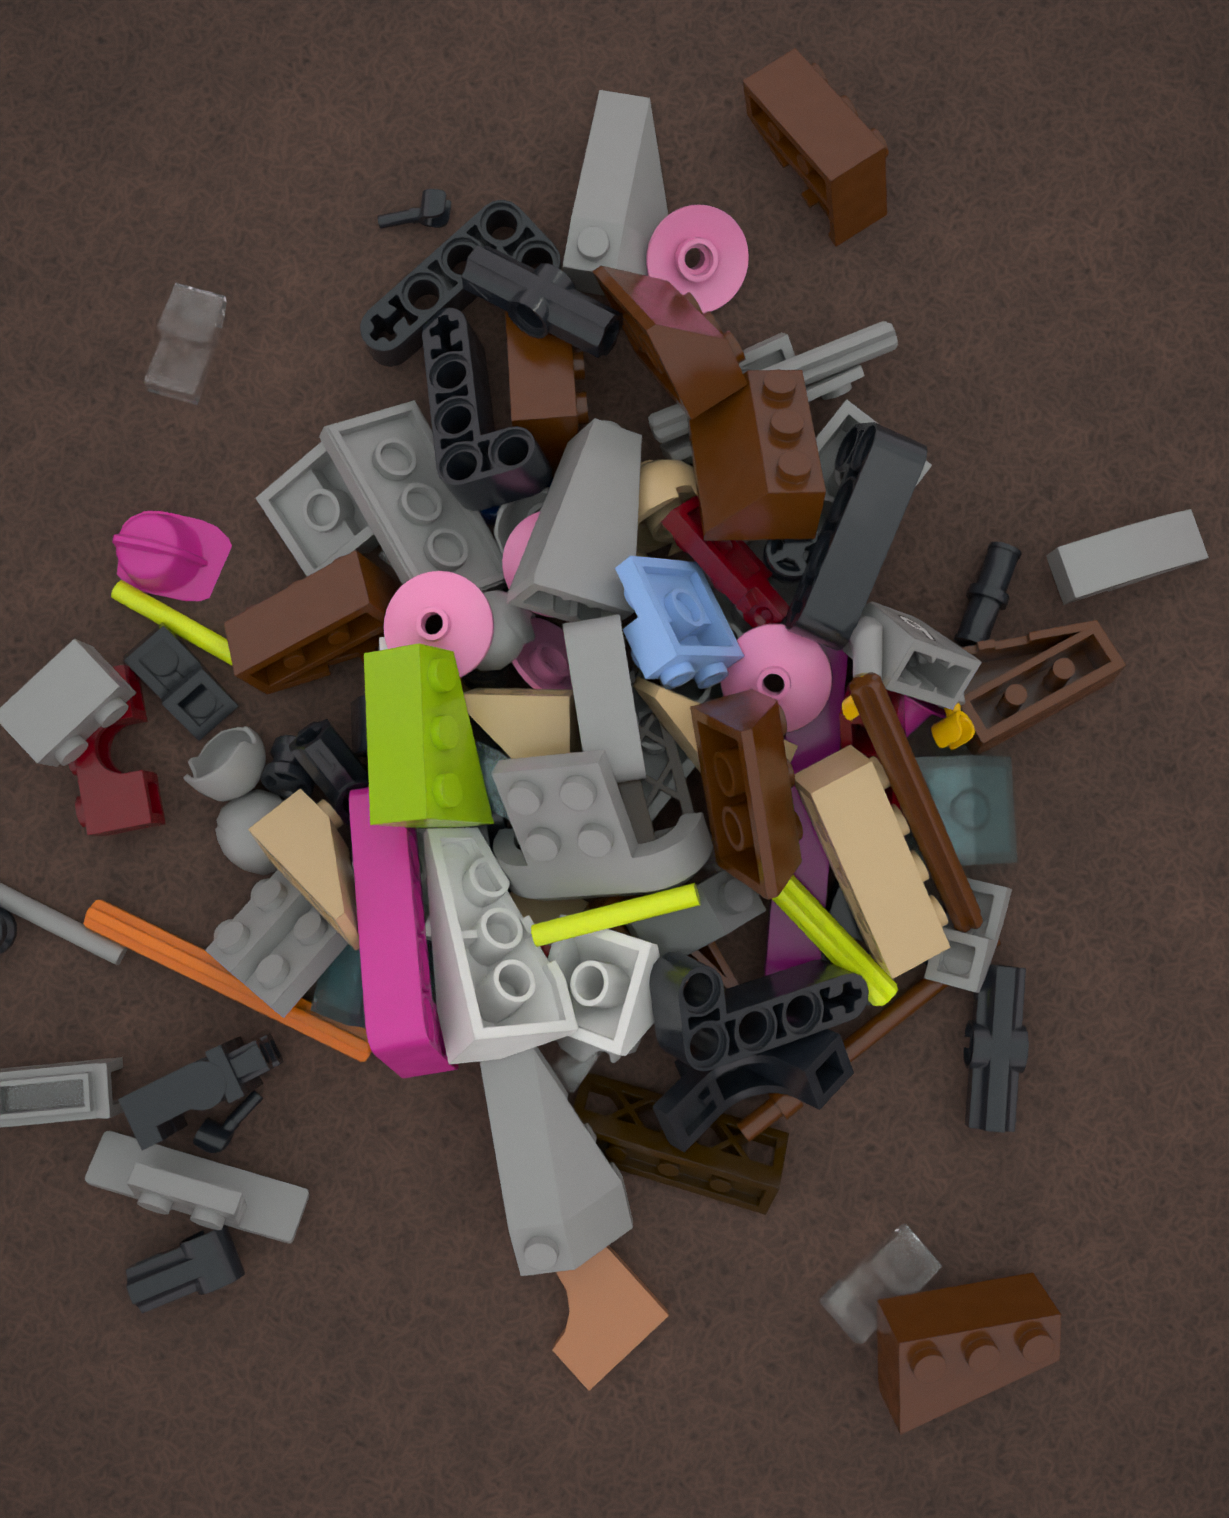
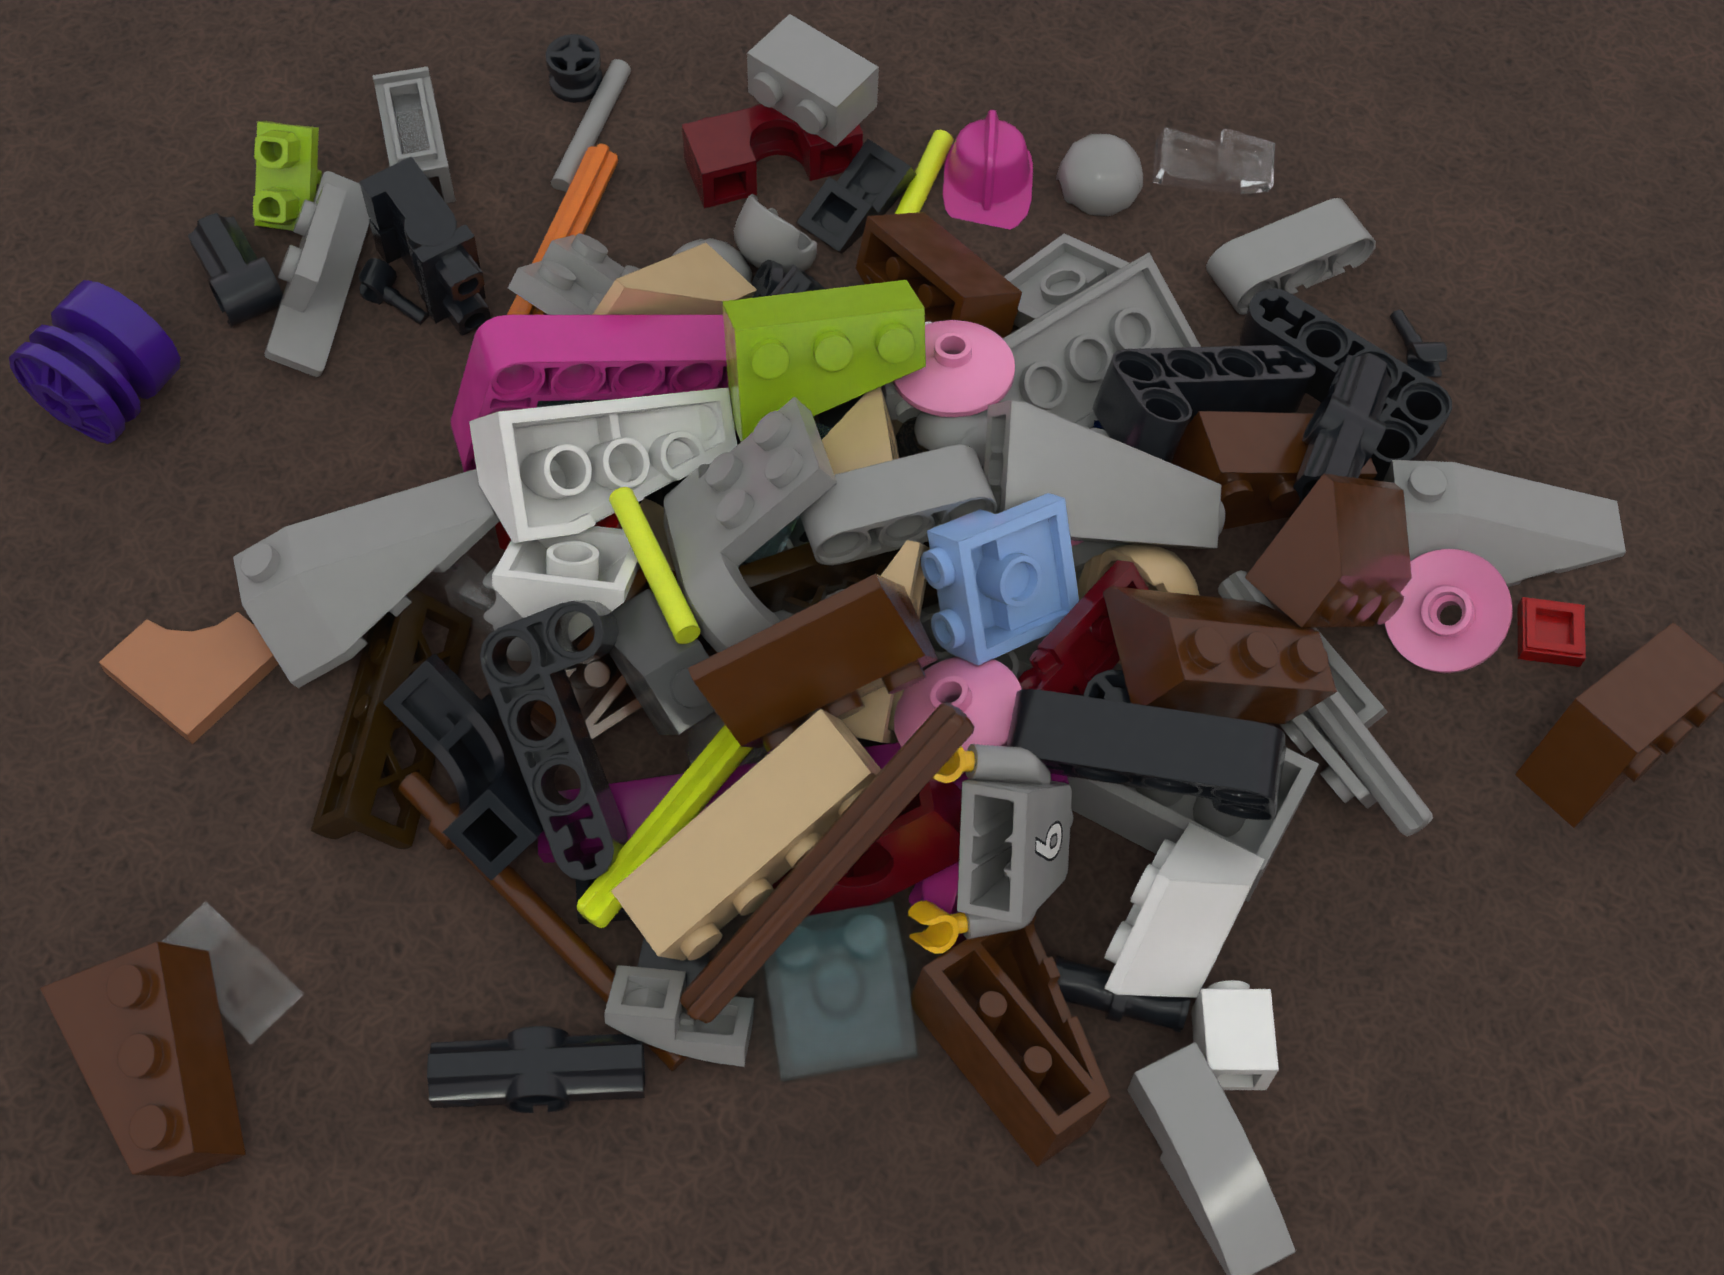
camera: 75 degrees right, 25 degrees down
(89, 1219) = (284, 172): none -> lime hips
(188, 451) = (1100, 175): none -> light grey hair
(292, 1402) = (95, 361): none -> dark purple wheel
(309, 299) = (1291, 253): none -> light grey beam
(716, 180) = (1551, 632): none -> red tile
(957, 536) = (1181, 915): none -> white slope
(1037, 516) = (1236, 1034): none -> white brick

